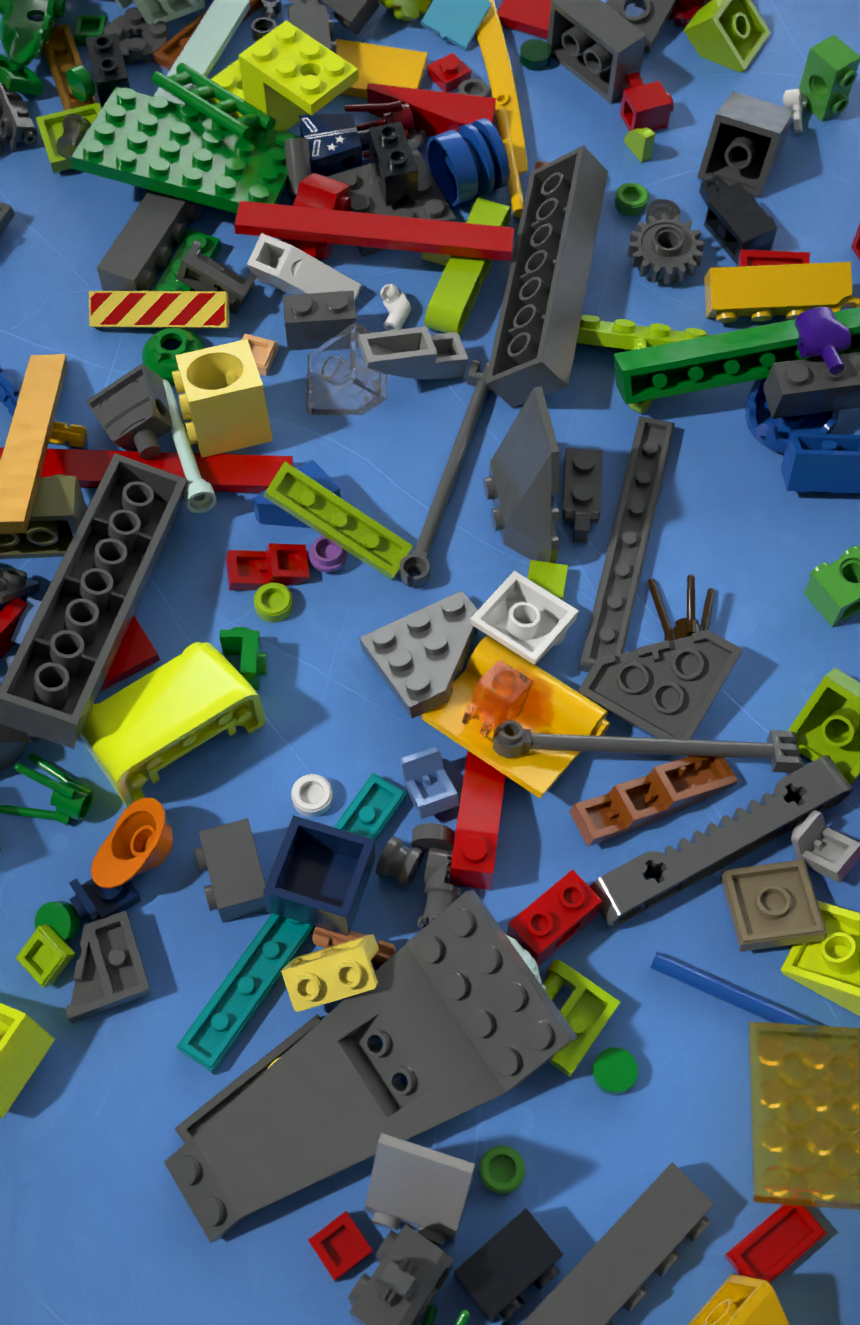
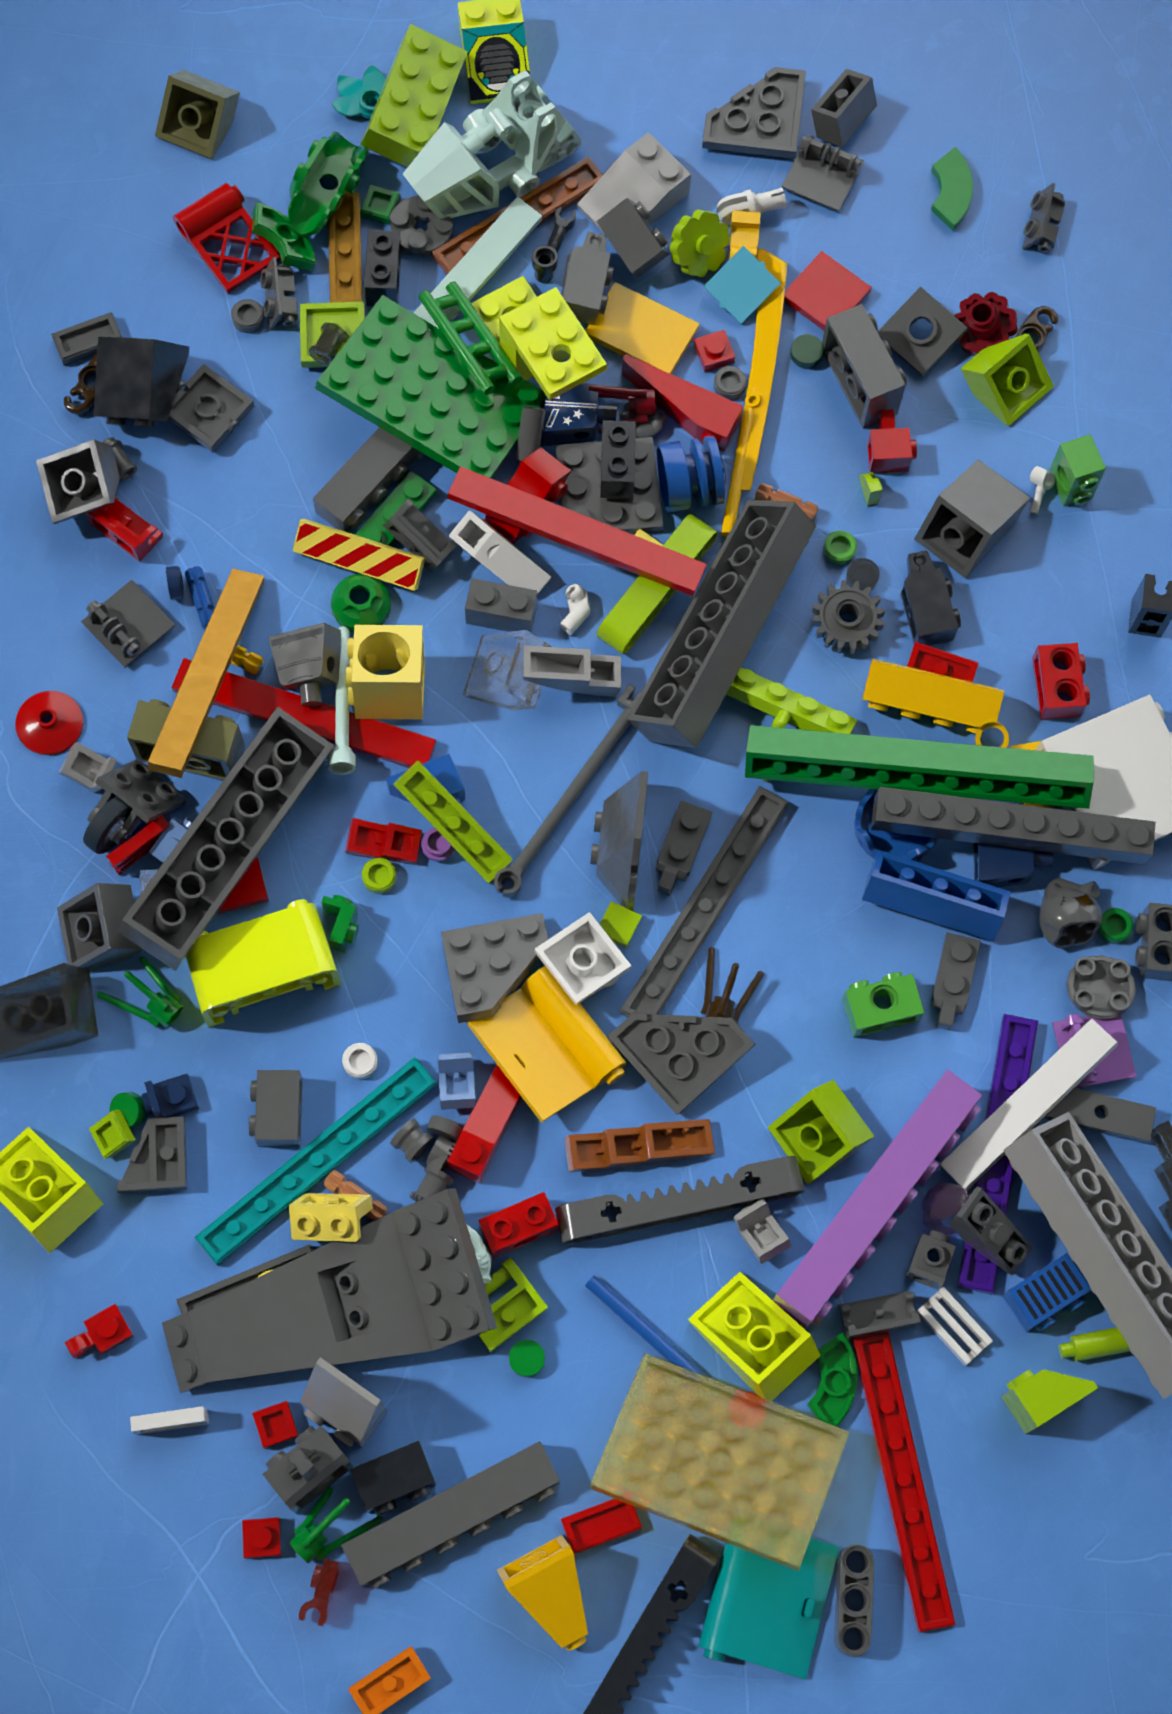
camera: 15 degrees right, 10 degrees up
(80, 83) = (351, 278): green tile -> none
(95, 1196) = (105, 1331): none -> red plate
(135, 845) = (205, 1063): orange piece -> none
(206, 1282) = (169, 1420): none -> white tile
(263, 351) = (436, 621): light nougat tile -> none
(320, 875) = (342, 1137): dark blue piece -> none
(498, 697) = (533, 1028): clear orange brick -> none
(501, 1170) = (414, 1406): bright green tile -> none
(772, 905) = (700, 1265): dark tan plate -> none
(781, 746) = (757, 1138): dark grey hinge -> none
(822, 336) = (929, 776): dark purple piece -> none

